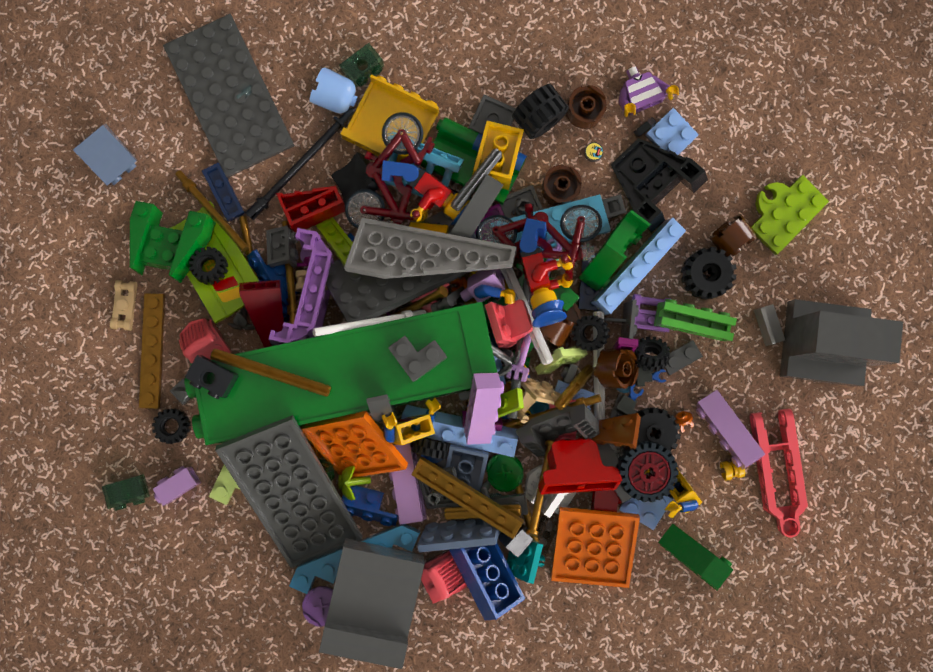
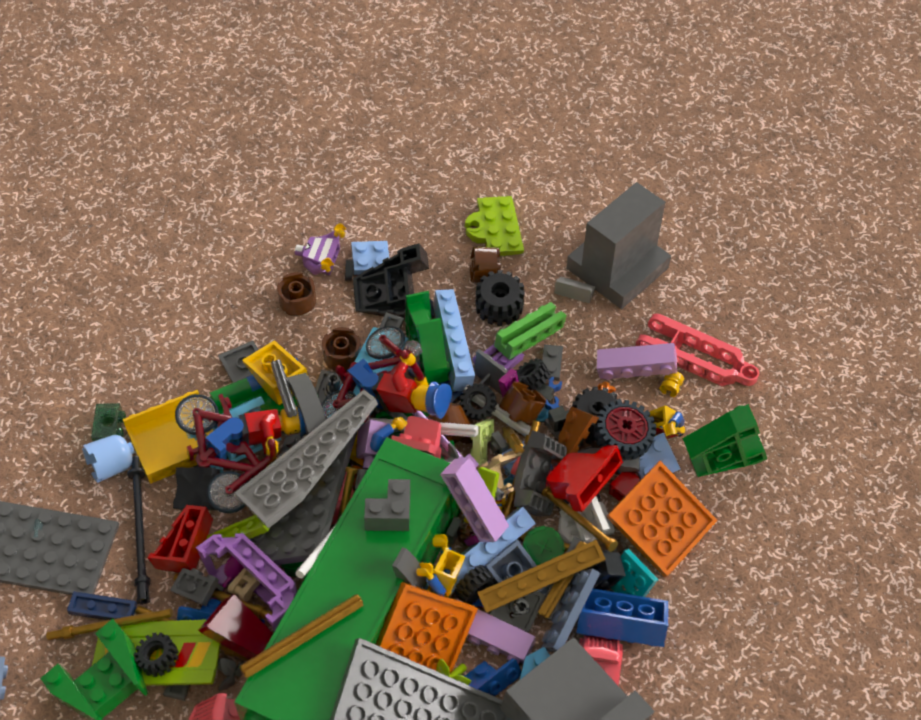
camera: 50 degrees left, 30 degrees down
(202, 368) = (270, 673): black brick -> none
(540, 111) = (270, 321): black wheel -> none
(593, 152) = (335, 315): tile -> none

